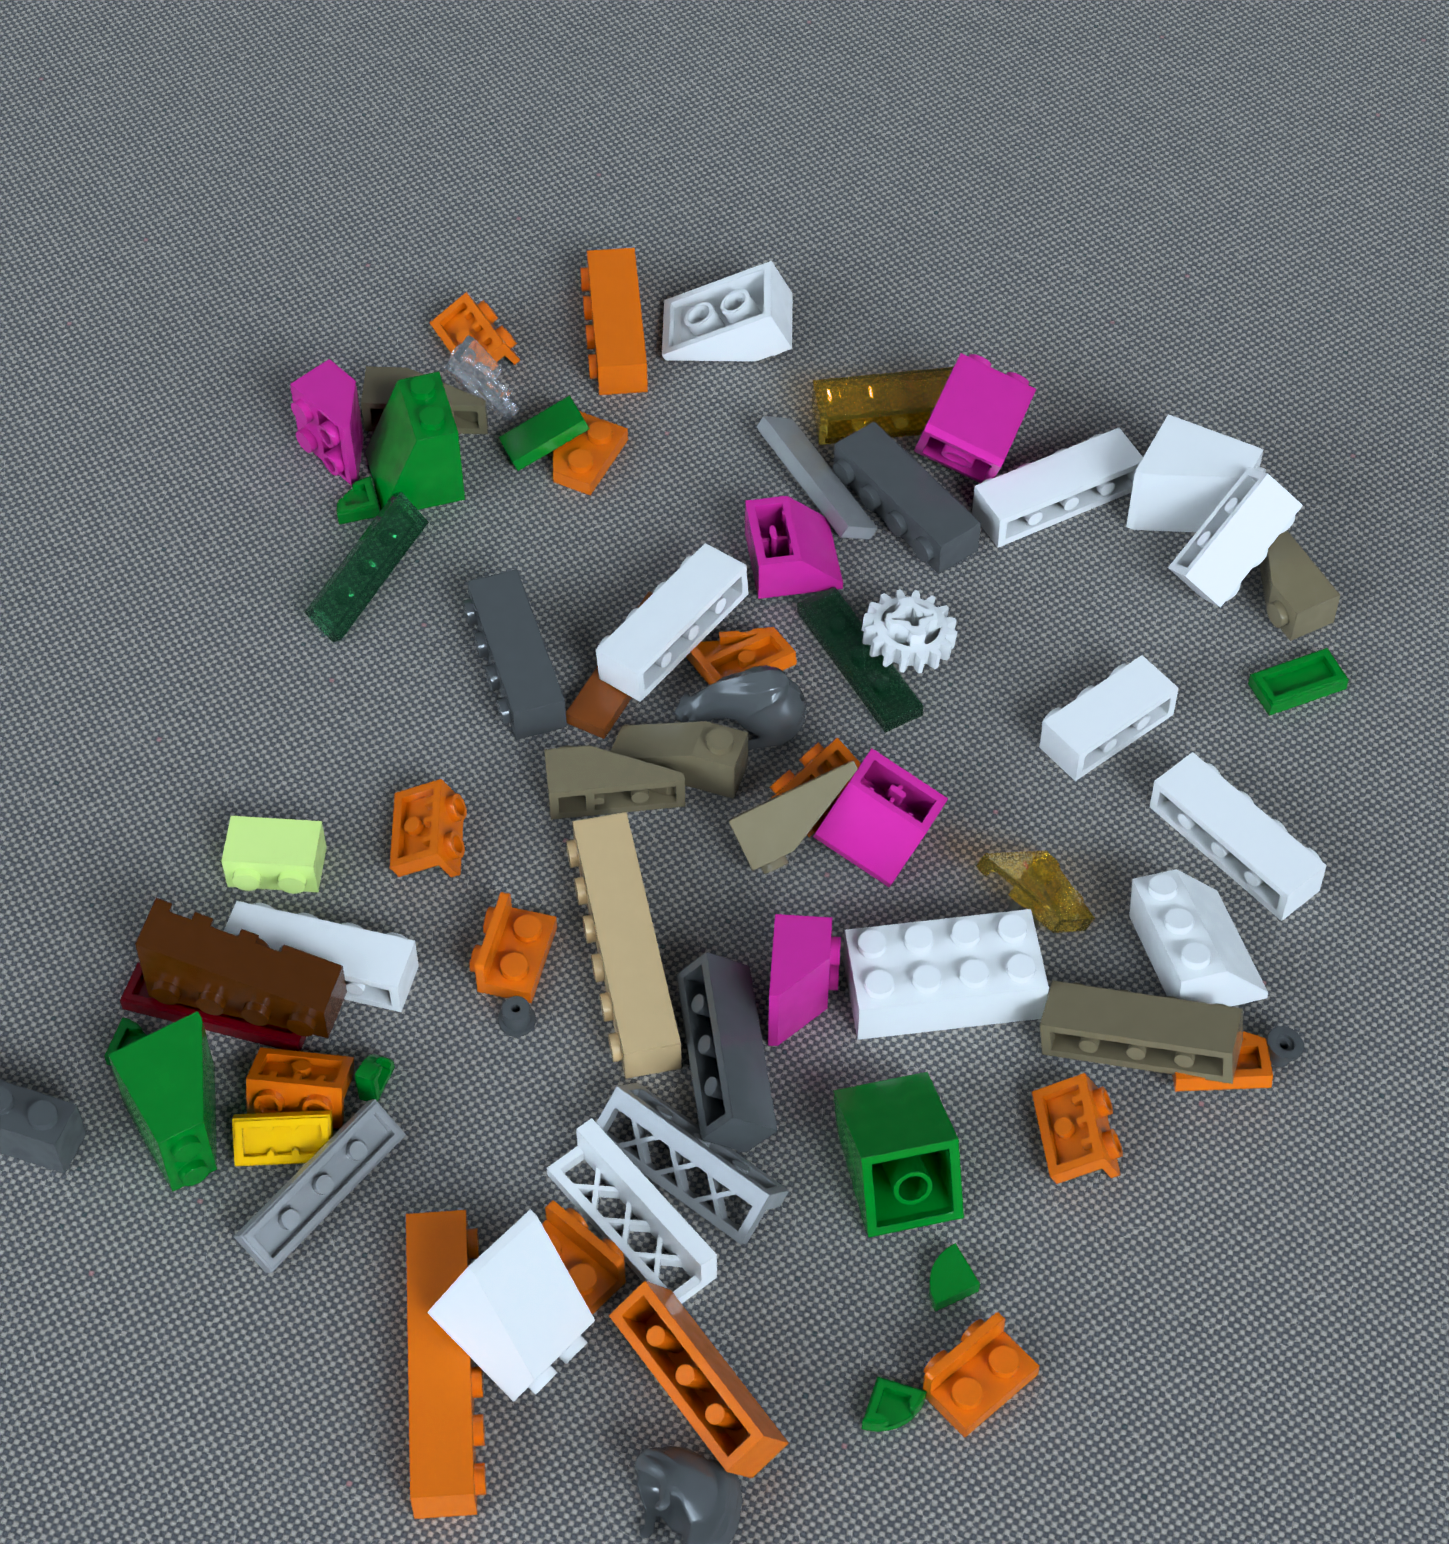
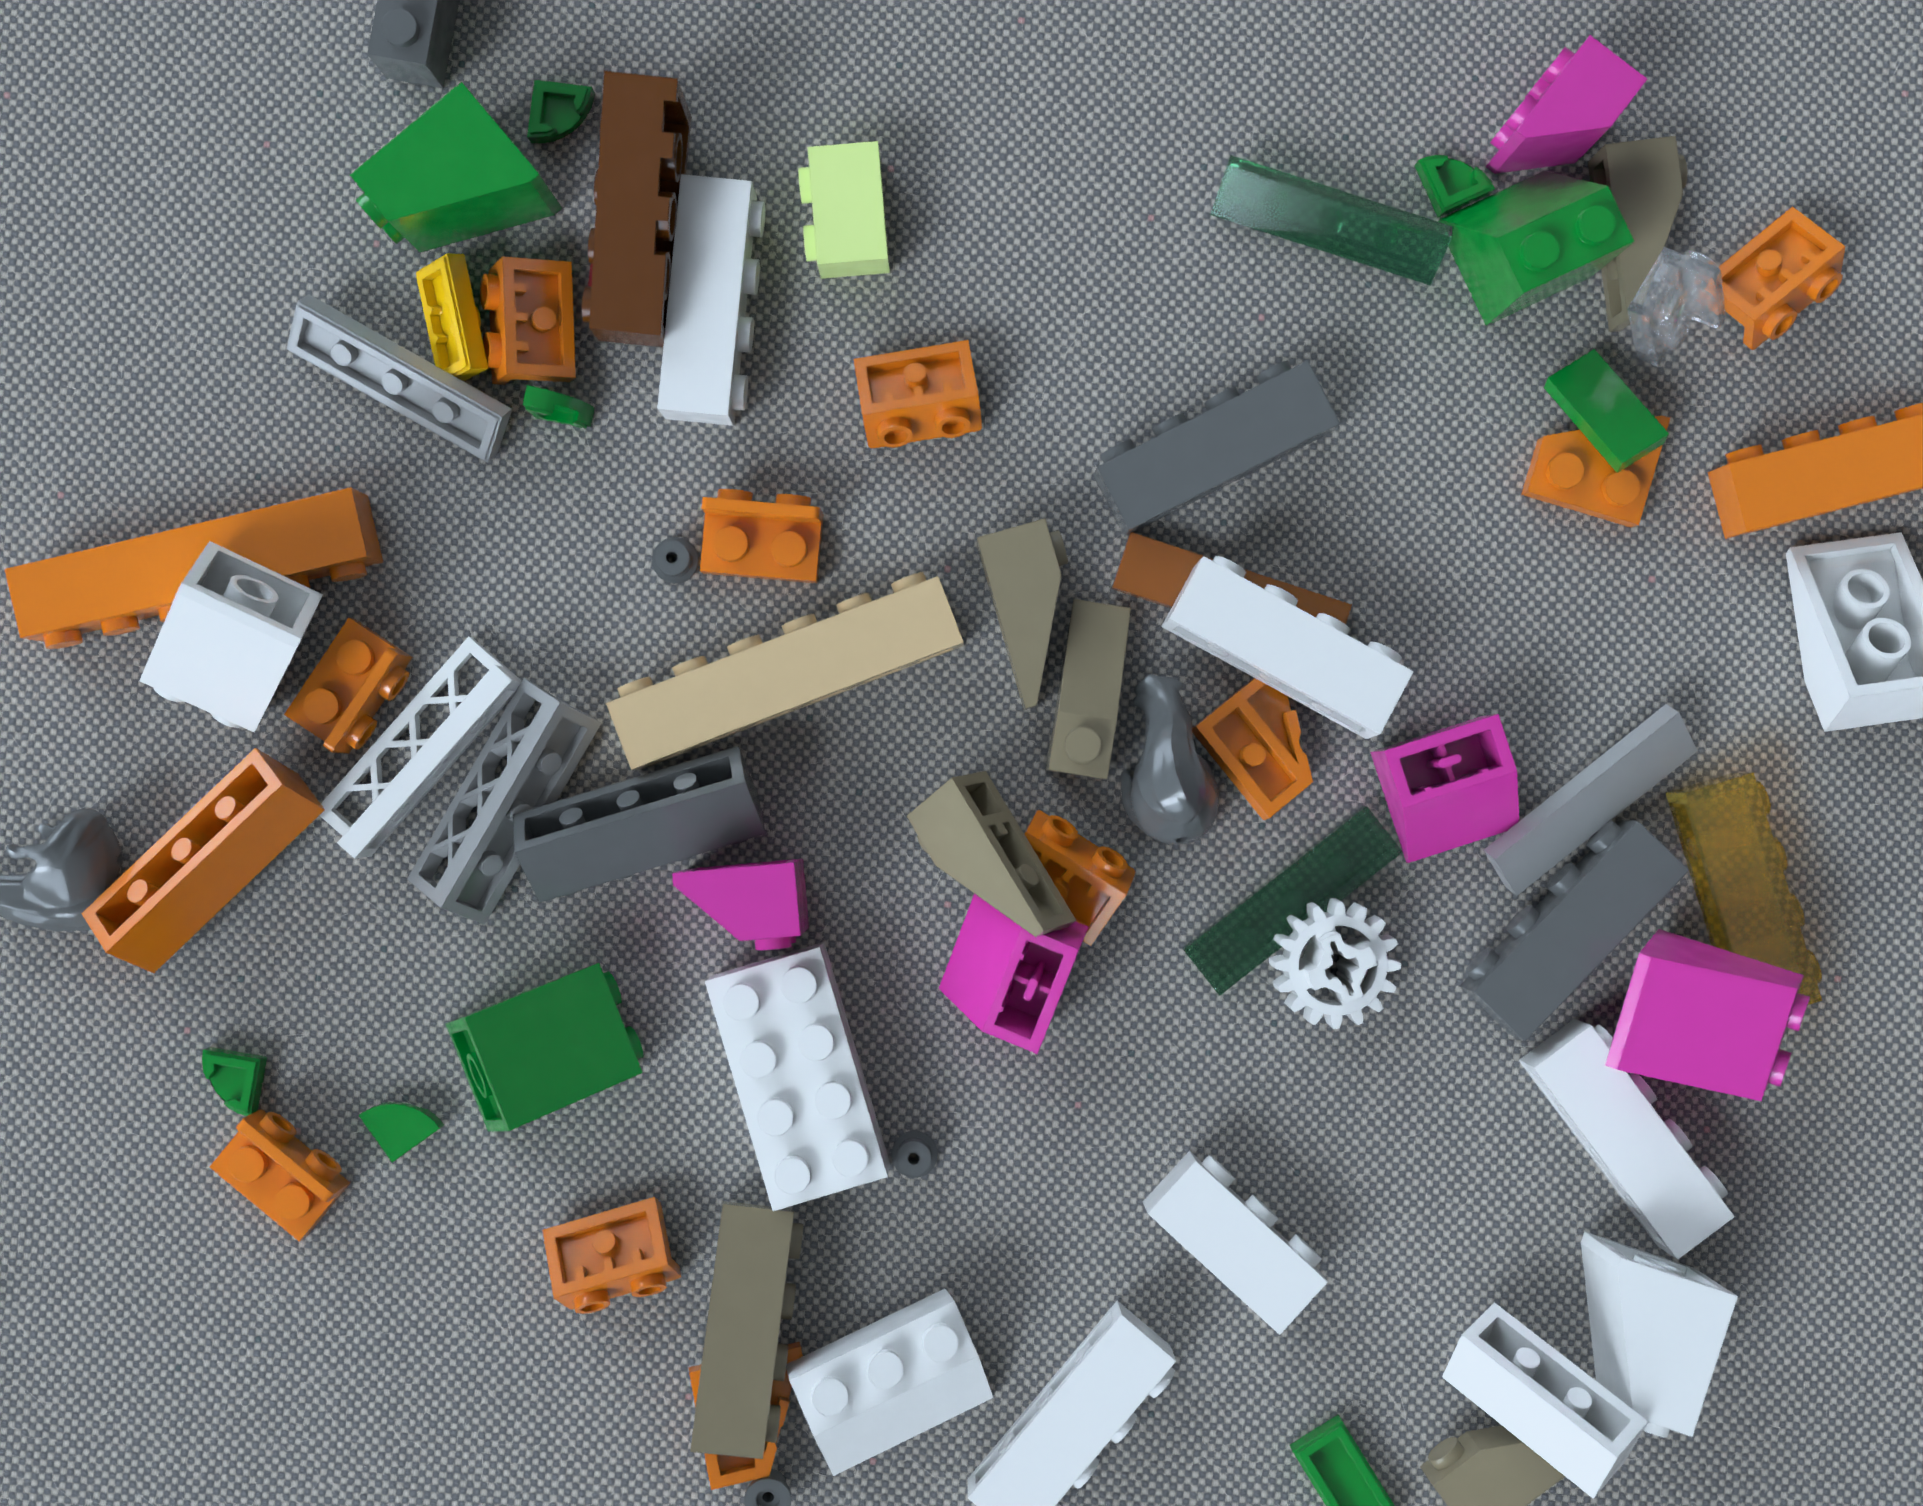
camera: 80 degrees right, 35 degrees up
(1040, 887) = (946, 1179): clear yellow wing -> none

